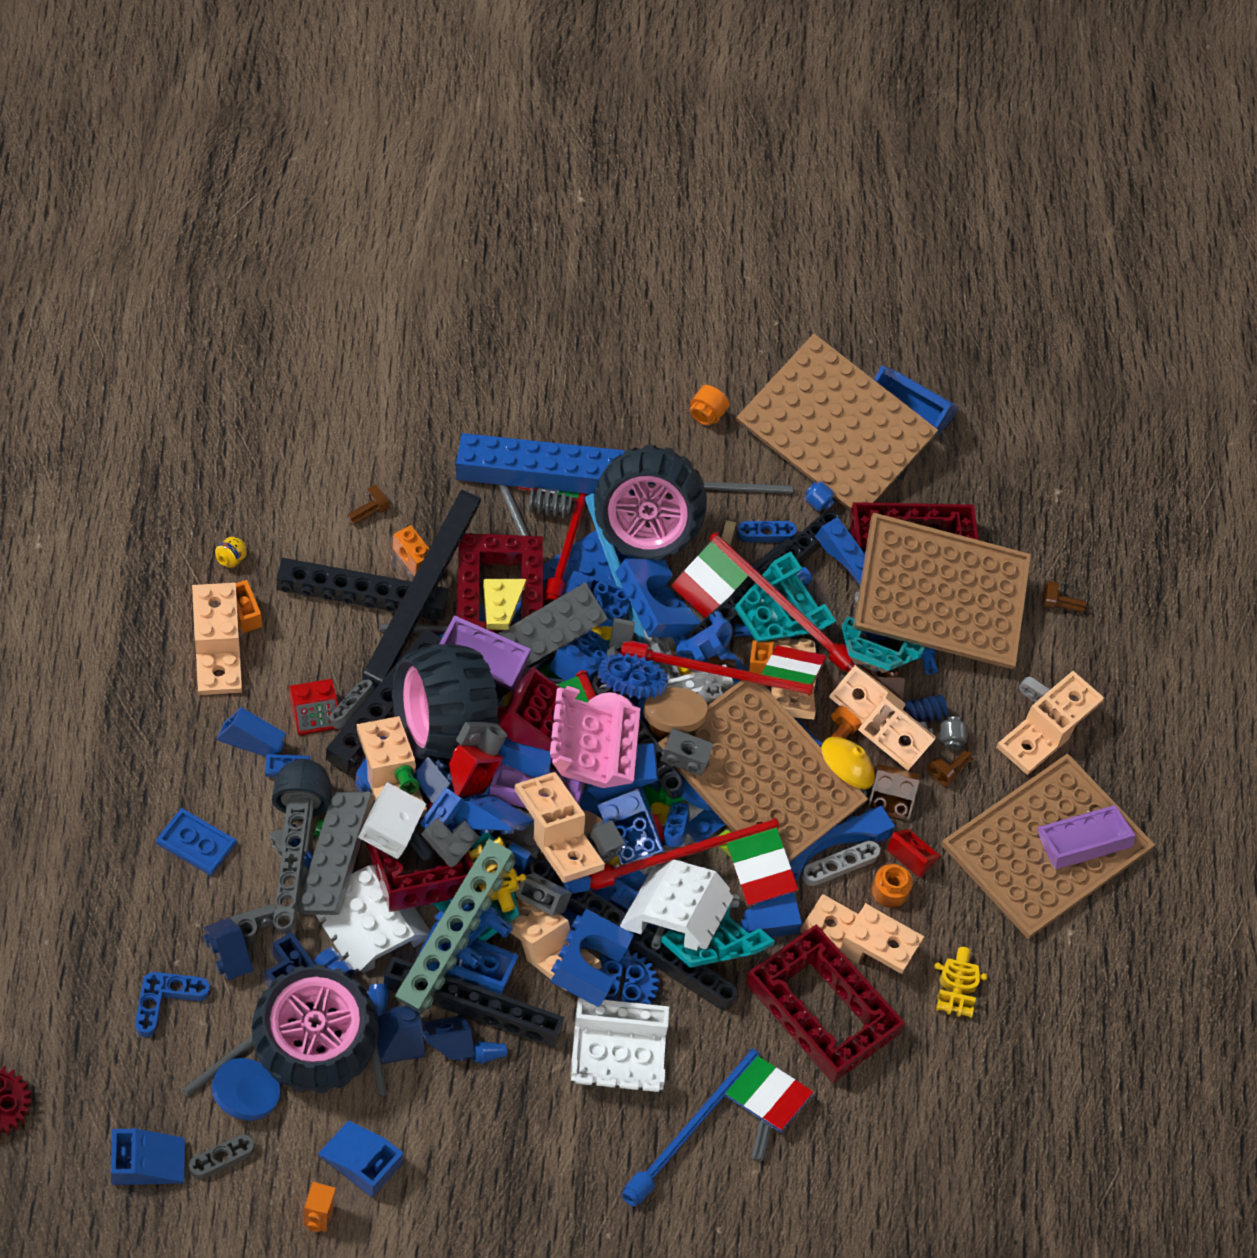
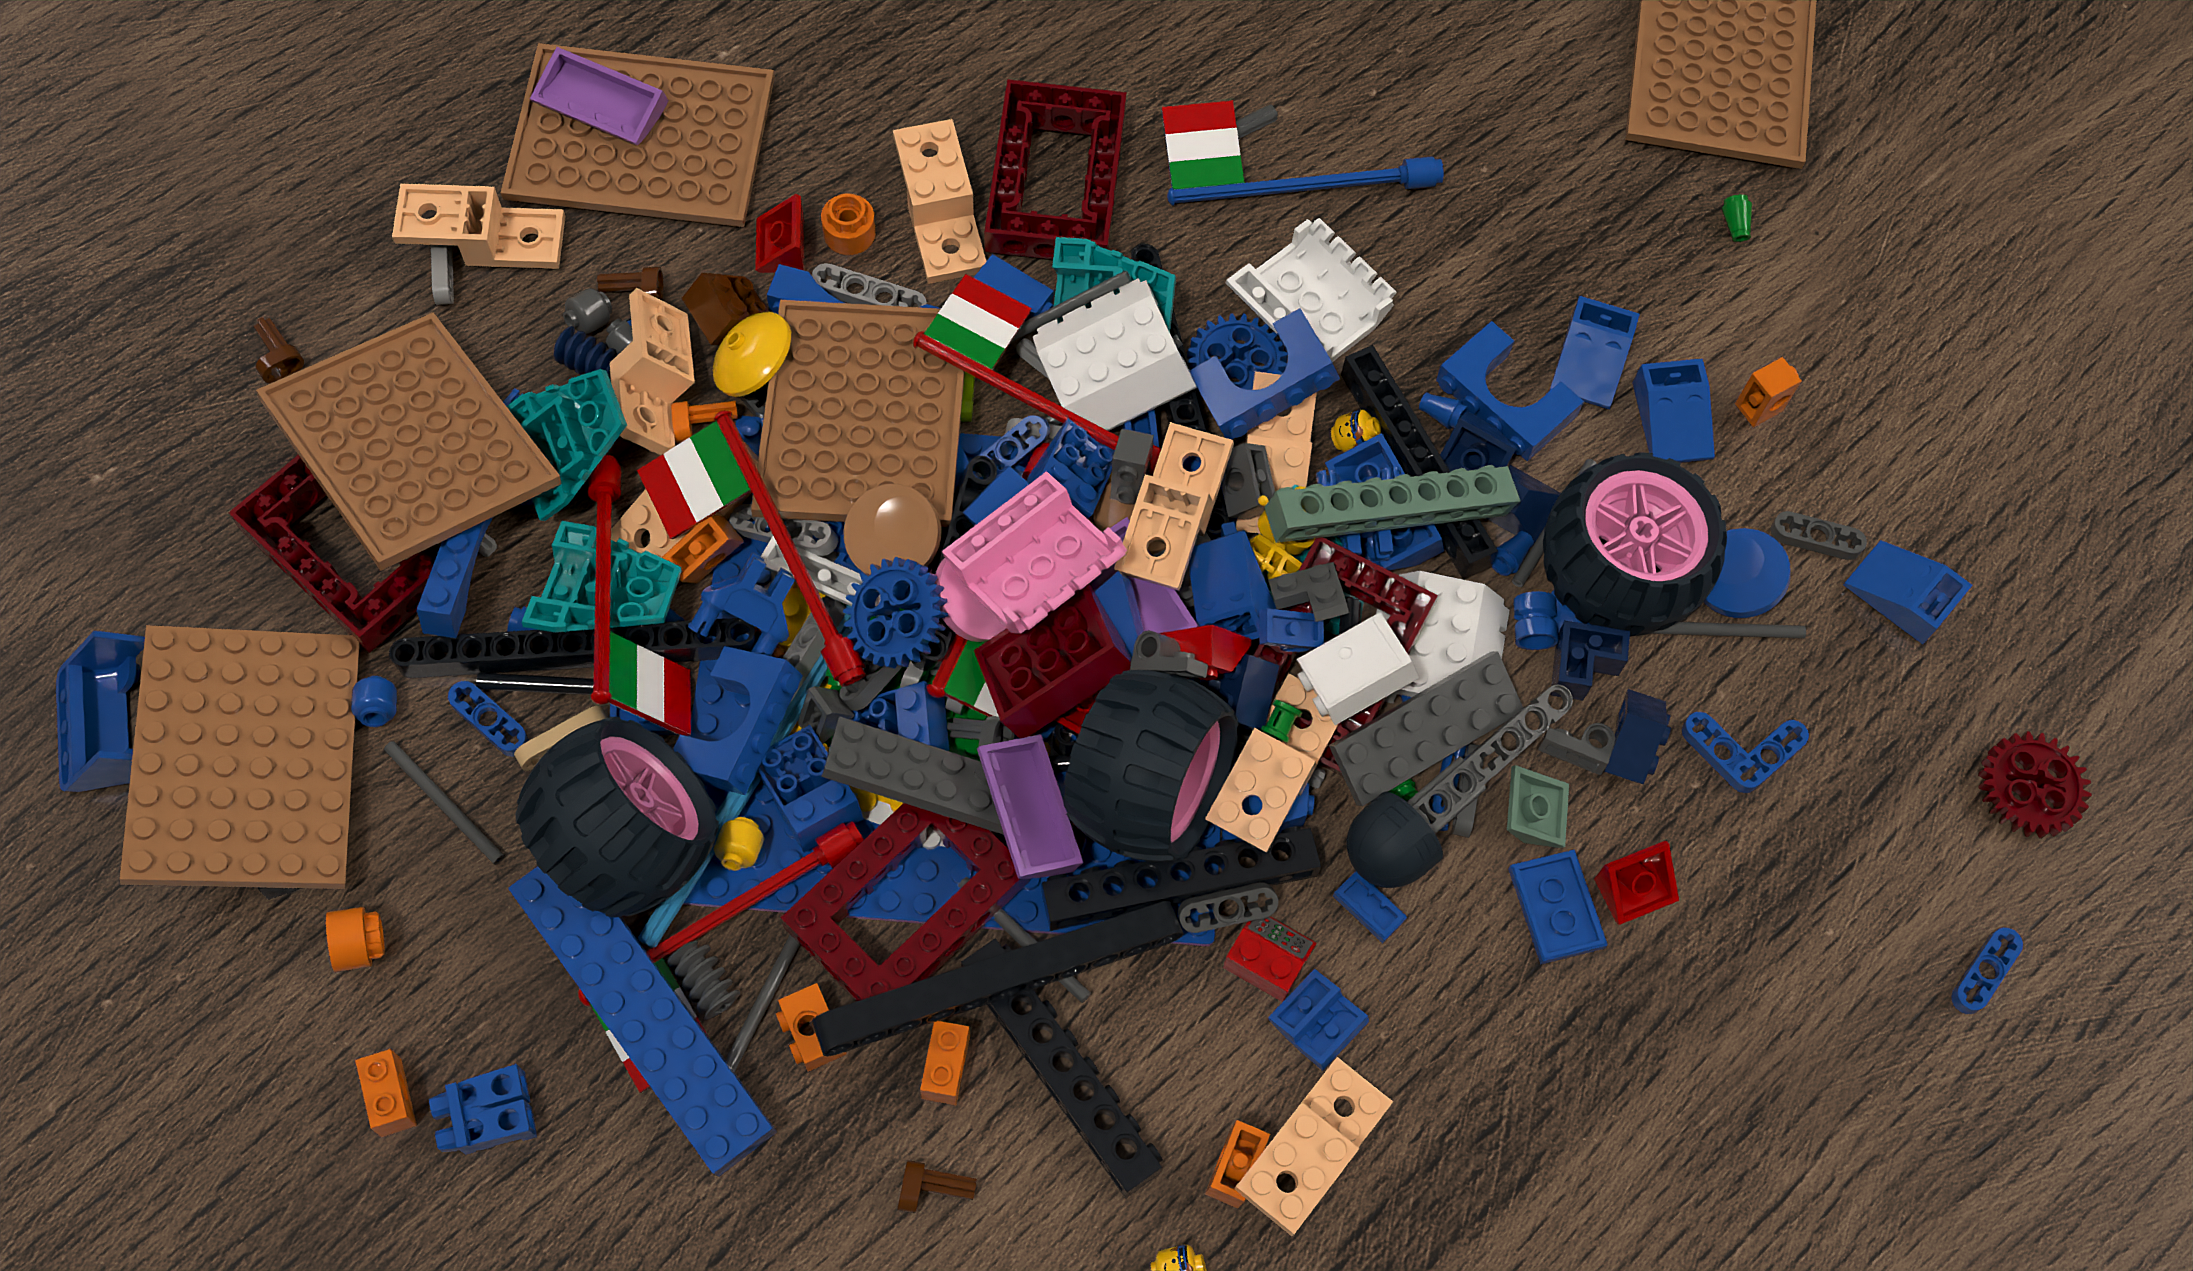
camera: 130 degrees left, 10 degrees up
(165, 880) = (1639, 883): none -> red slope
(248, 876) = (1537, 808): none -> sand green slope
(251, 733) = (1383, 979): blue slope -> none
(266, 699) = (1318, 1019): none -> blue slope
(439, 1155) = (1595, 350): none -> blue slope
(489, 521) = (796, 1011): none -> orange brick
(491, 1078) = (1525, 427): none -> blue arch
(501, 601) = (936, 857): light yellow wing -> none
(521, 989) = (1354, 429): none -> yellow head
(579, 394) = (485, 1111): none -> blue hips
(596, 559) = (738, 843): none -> yellow head
(626, 369) = (386, 1093): none -> orange brick
(696, 748) = (941, 489): dark grey brick -> none
(728, 922) = (1073, 303): none -> dark grey piece
(959, 978) = (886, 89): yellow torso -> none

